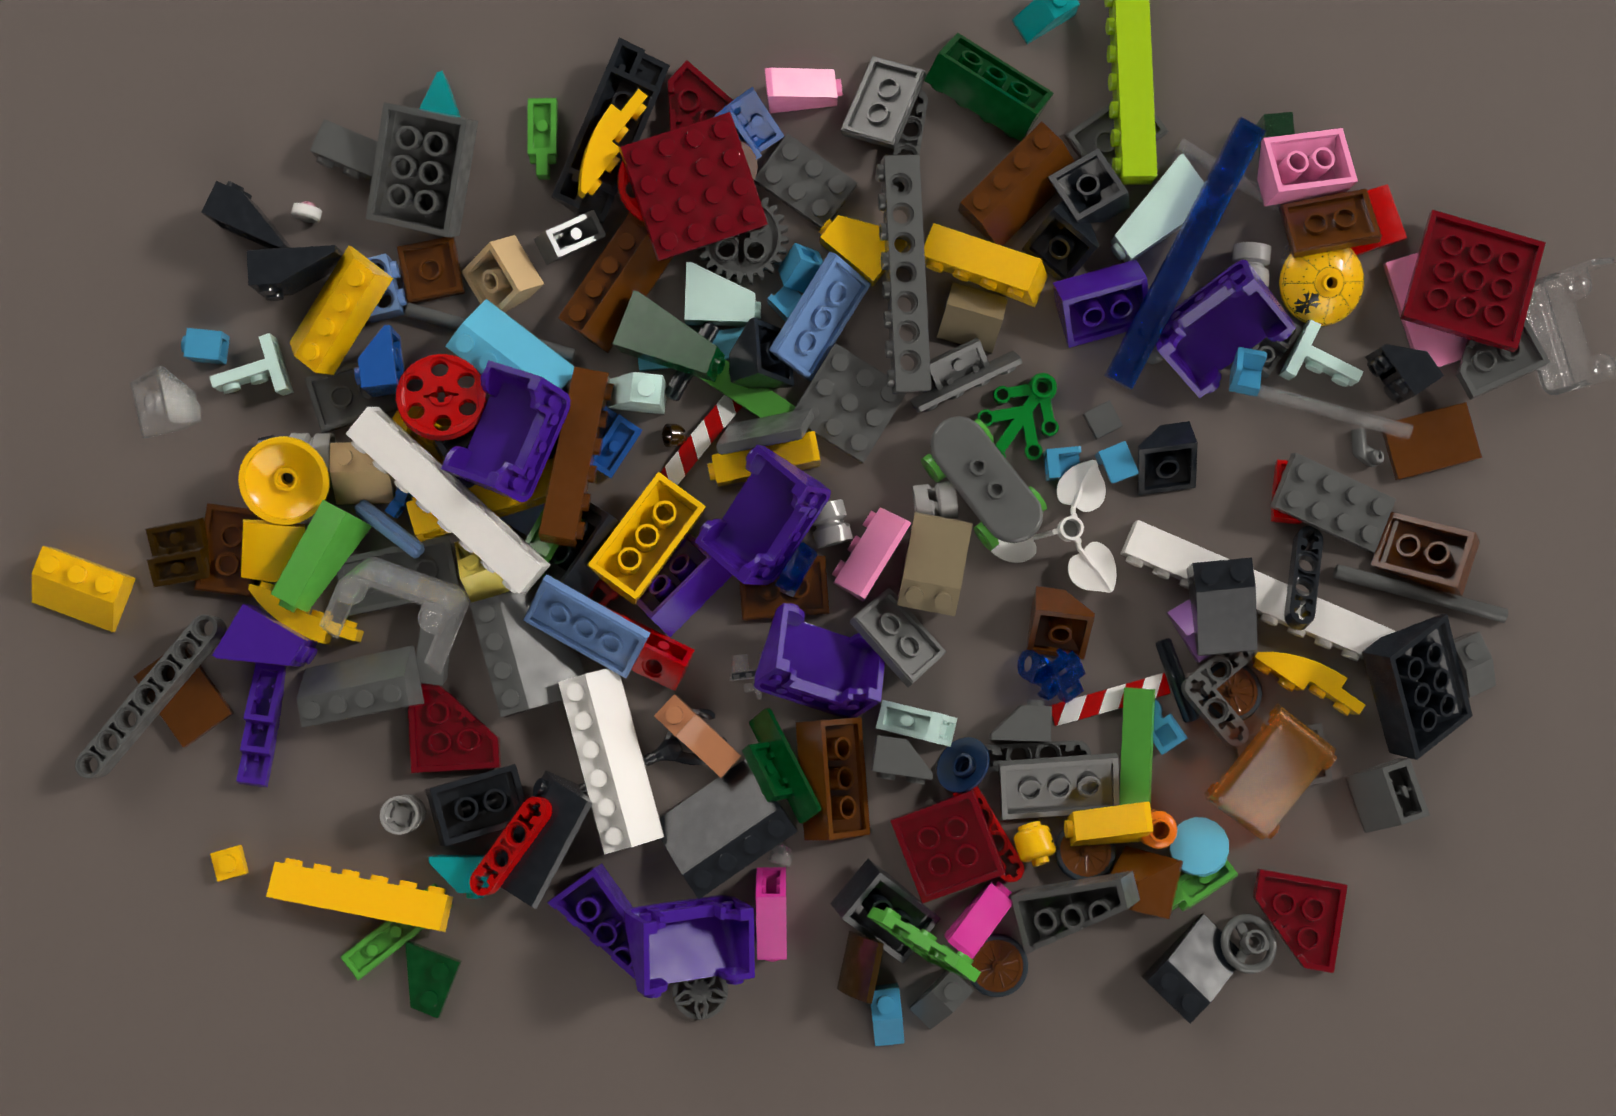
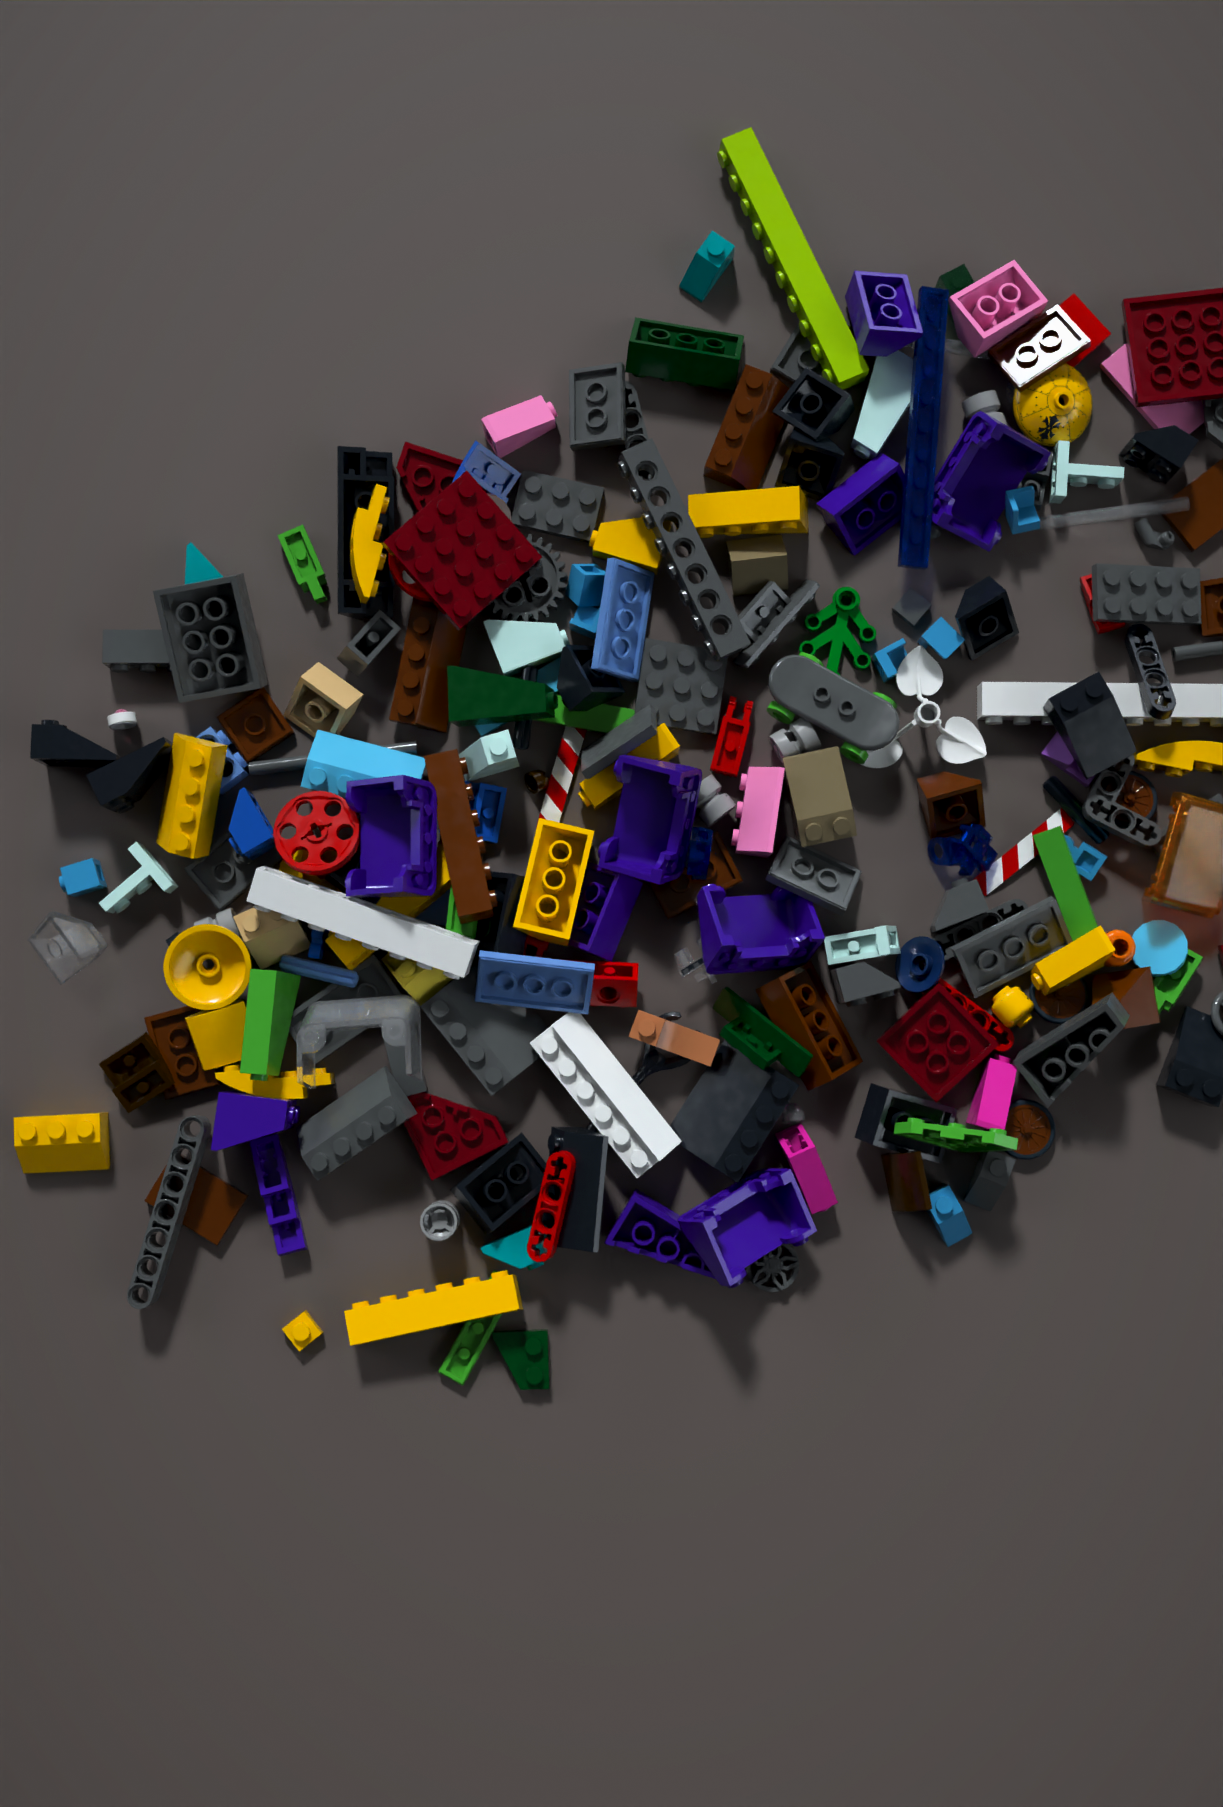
camera: 20 degrees left, 0 degrees up
(875, 474) = (731, 740): none -> red hinge
(1193, 126) = (882, 312): none -> dark purple slope

